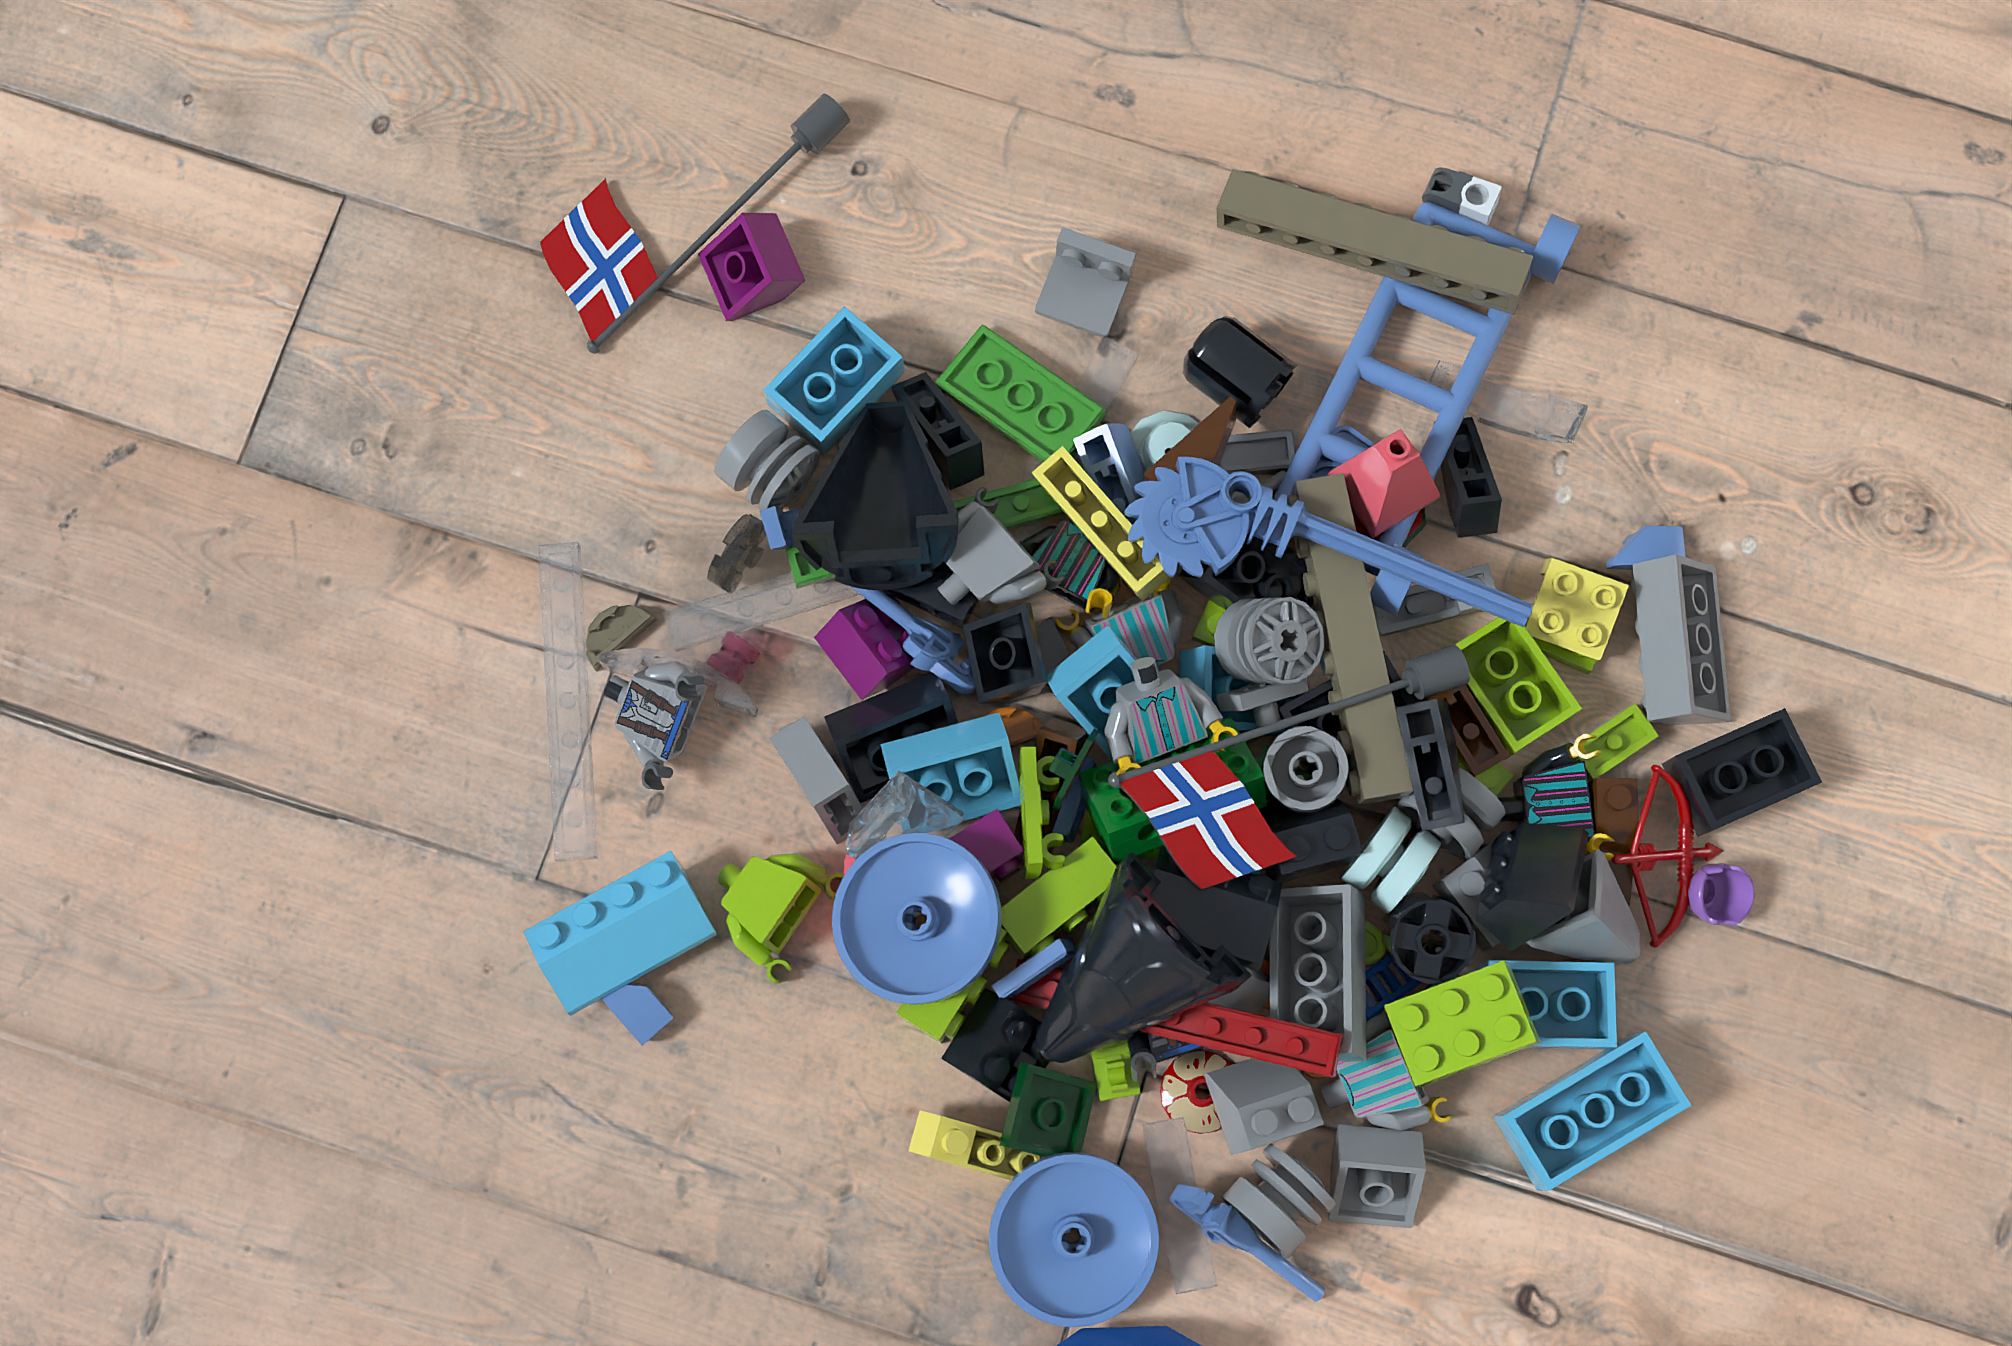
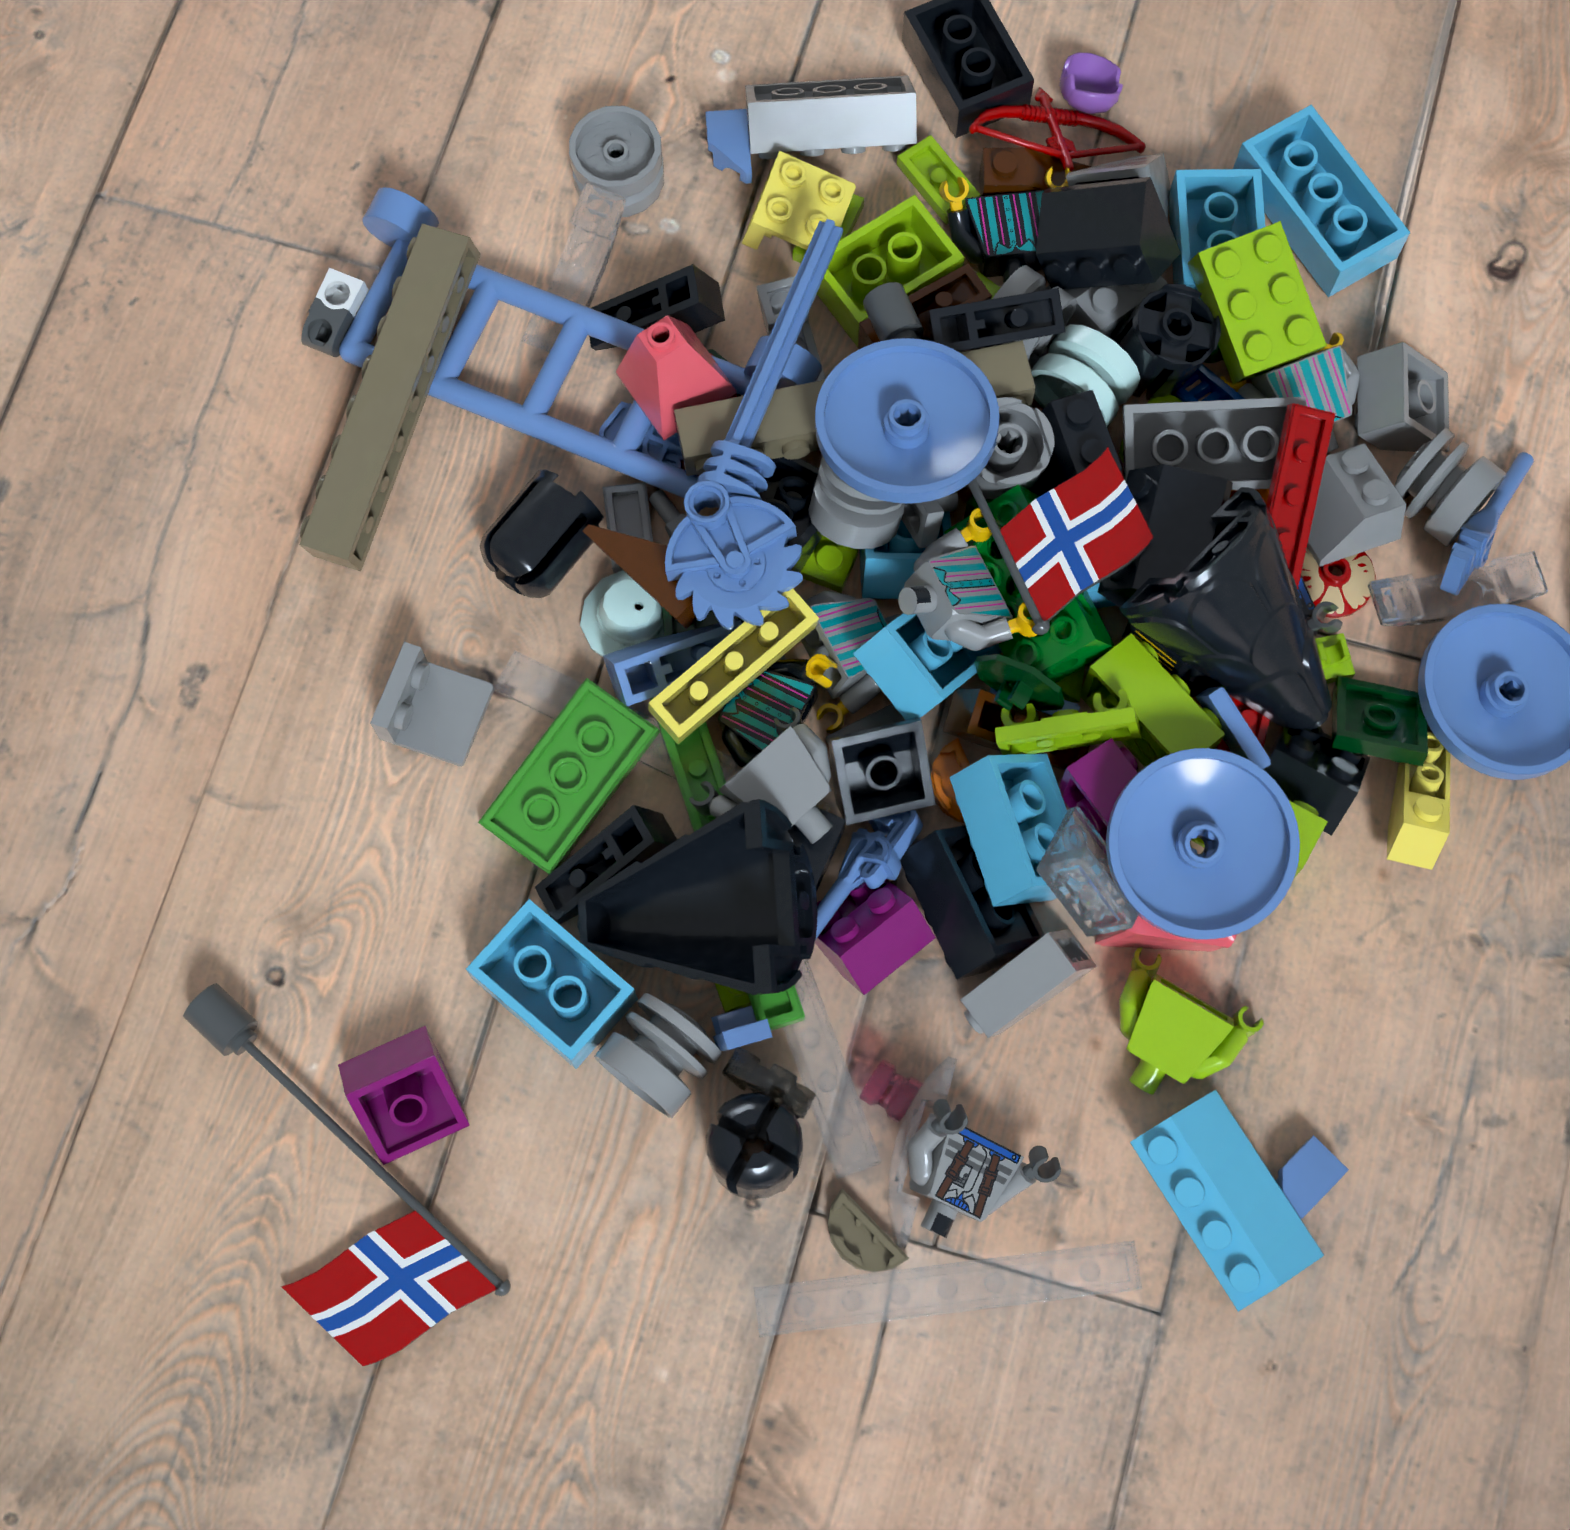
camera: 90 degrees left, 5 degrees down
(671, 535) = (749, 1119): none -> black cylinder
(1347, 647) = (906, 420): none -> medium blue dish
(1620, 440) = (620, 154): none -> light grey wheel

